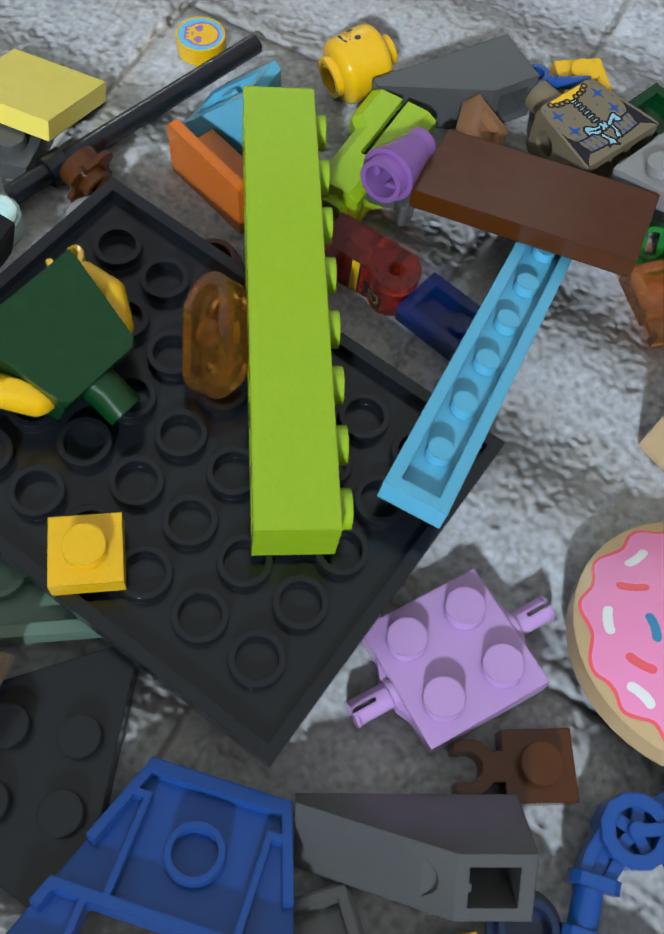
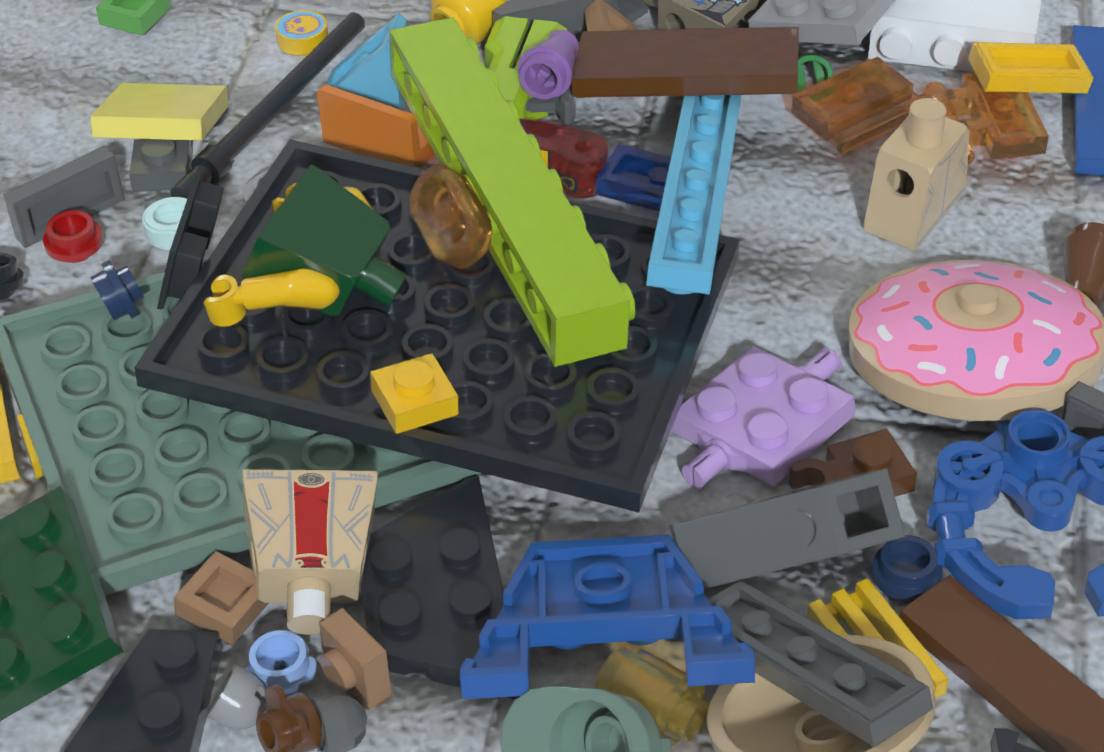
camera: 10 degrees left, 20 degrees down
(86, 171) = (248, 157): reddish brown plate -> none

